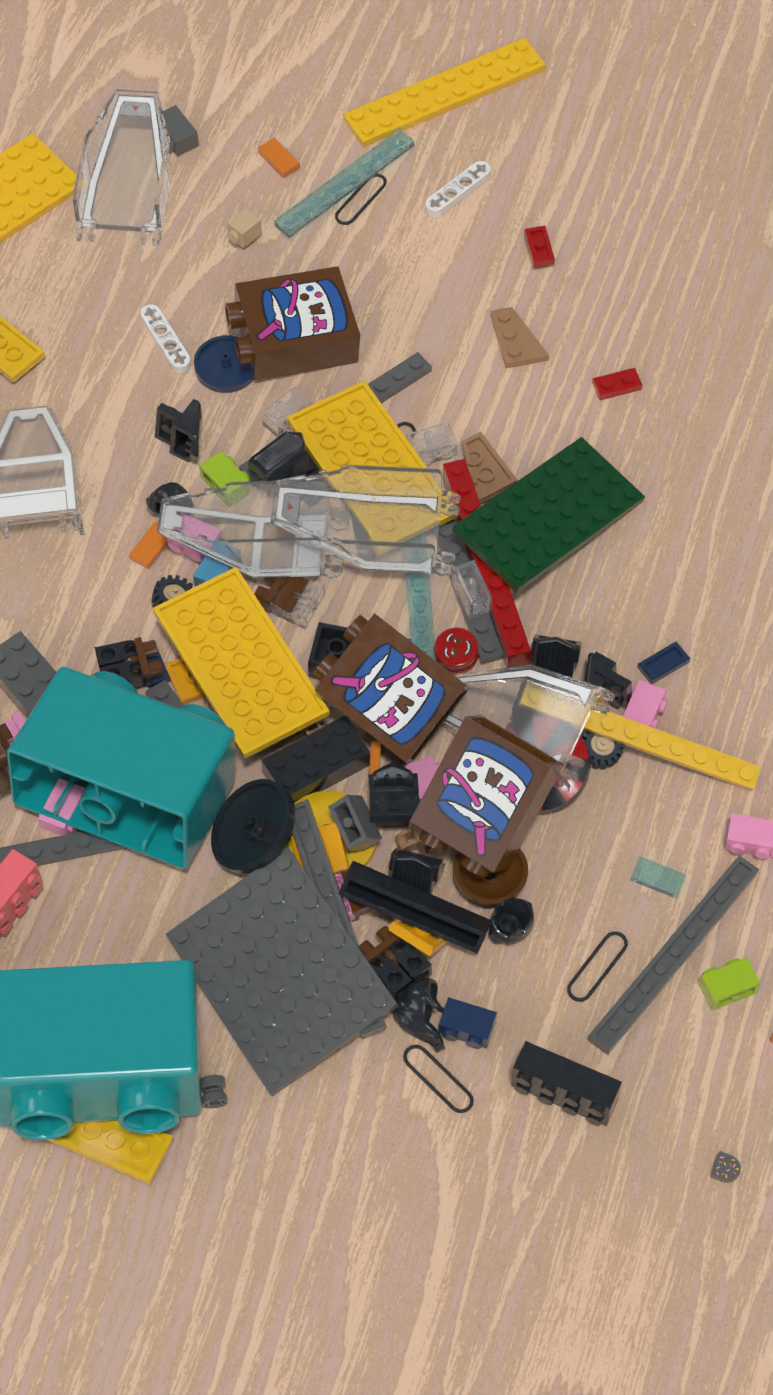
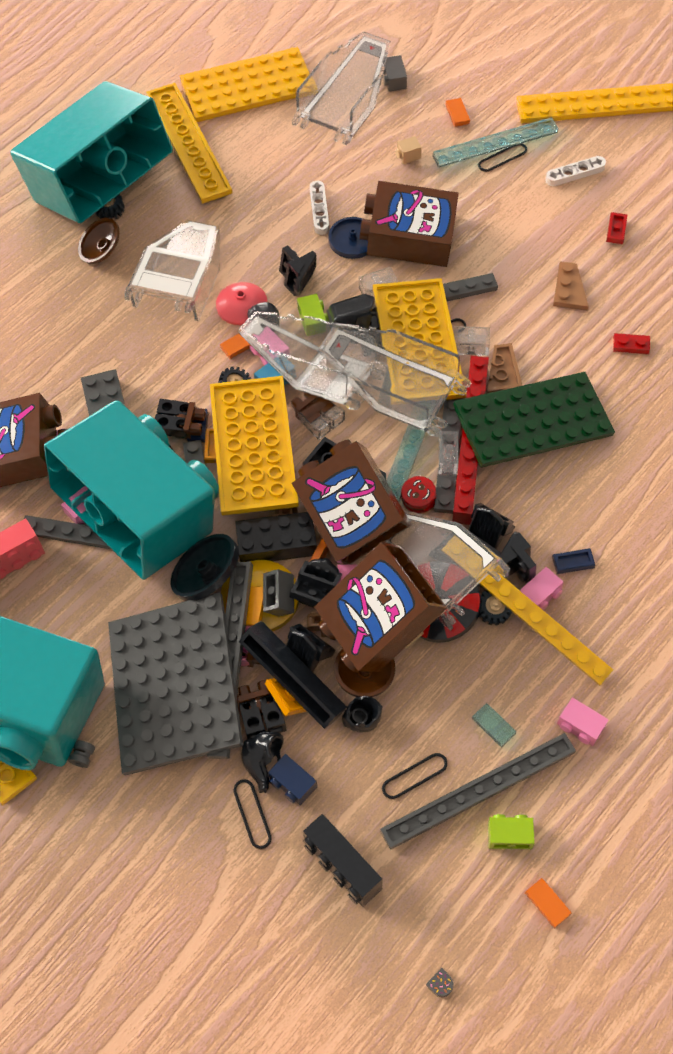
camera: 25 degrees right, 0 degrees up
(123, 503) = (236, 299): none -> coral dish

